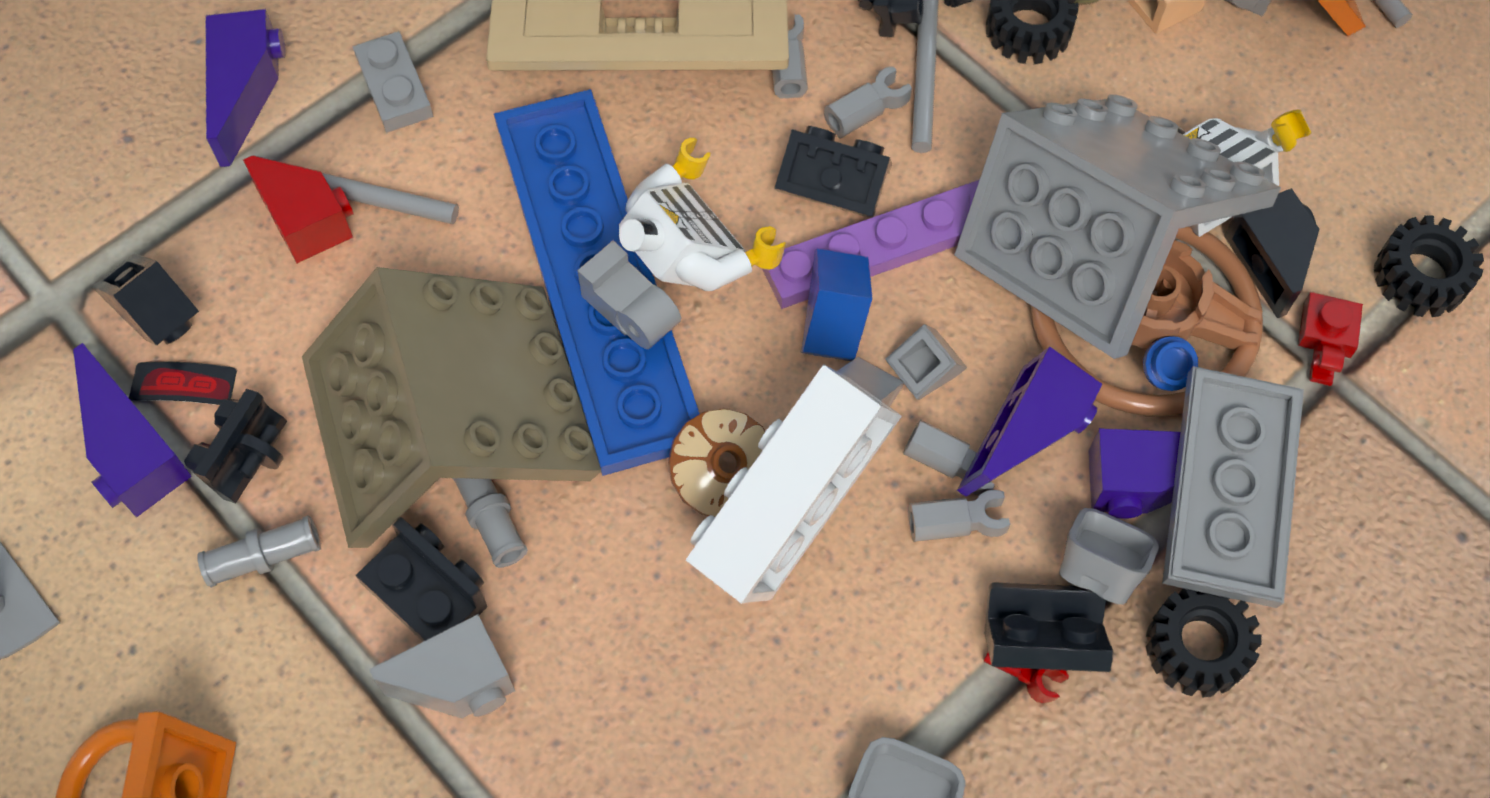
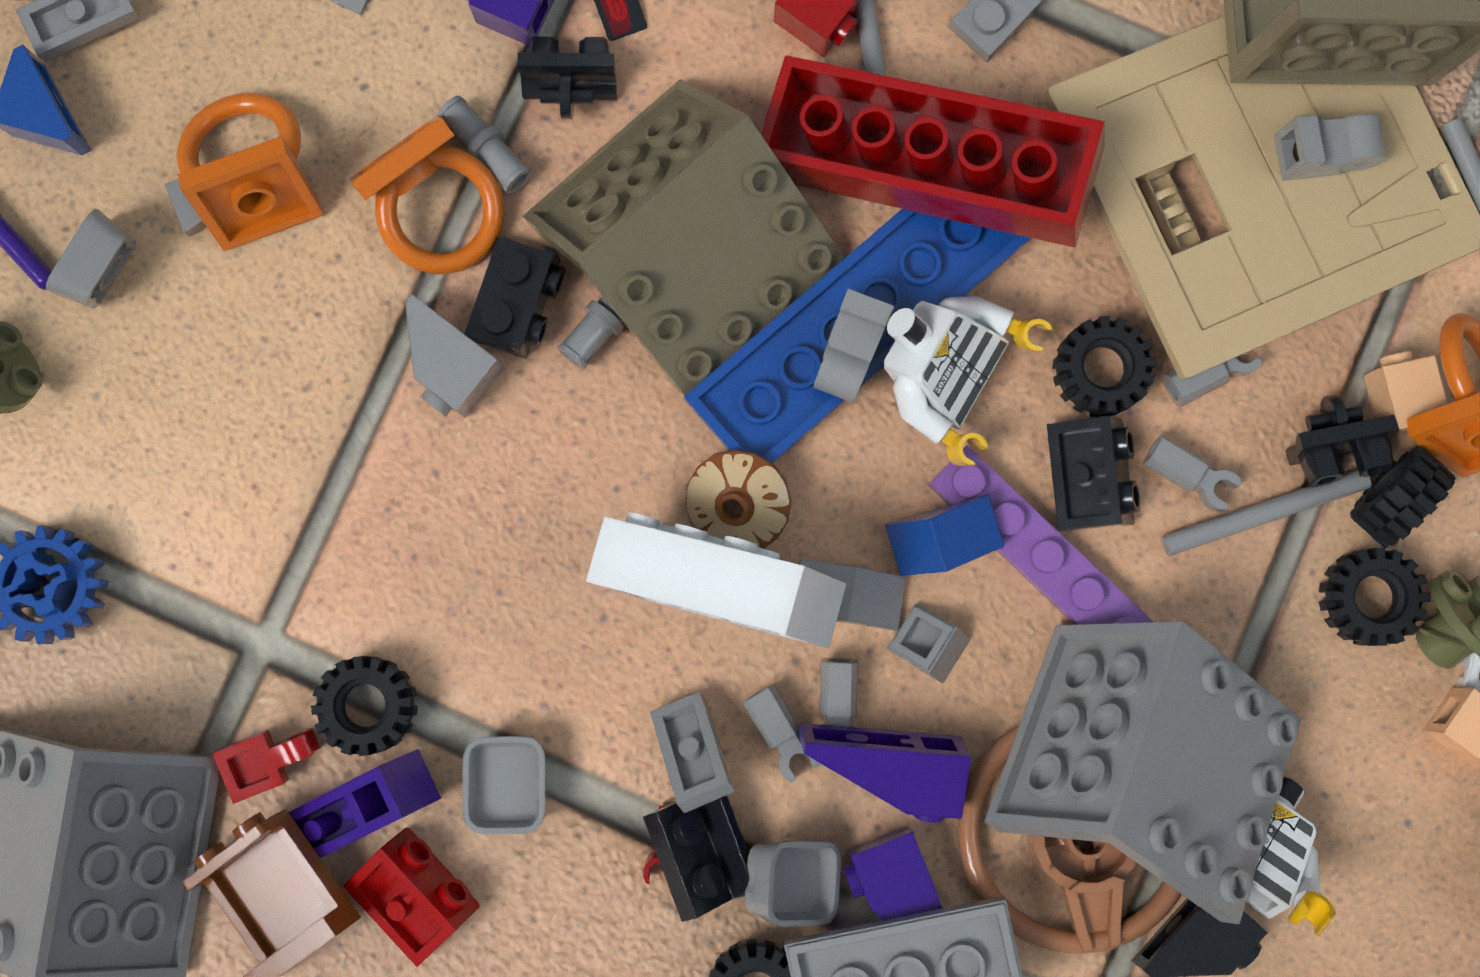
camera: 65 degrees right, 20 degrees up
(238, 619) = (409, 165): none -> orange tile
(494, 153) = (934, 149): none -> red brick
(745, 104) = (1131, 350): none -> black tyre
(946, 595) = (692, 752): none -> light grey plate
(1169, 362) = (1015, 875): blue plate -> none

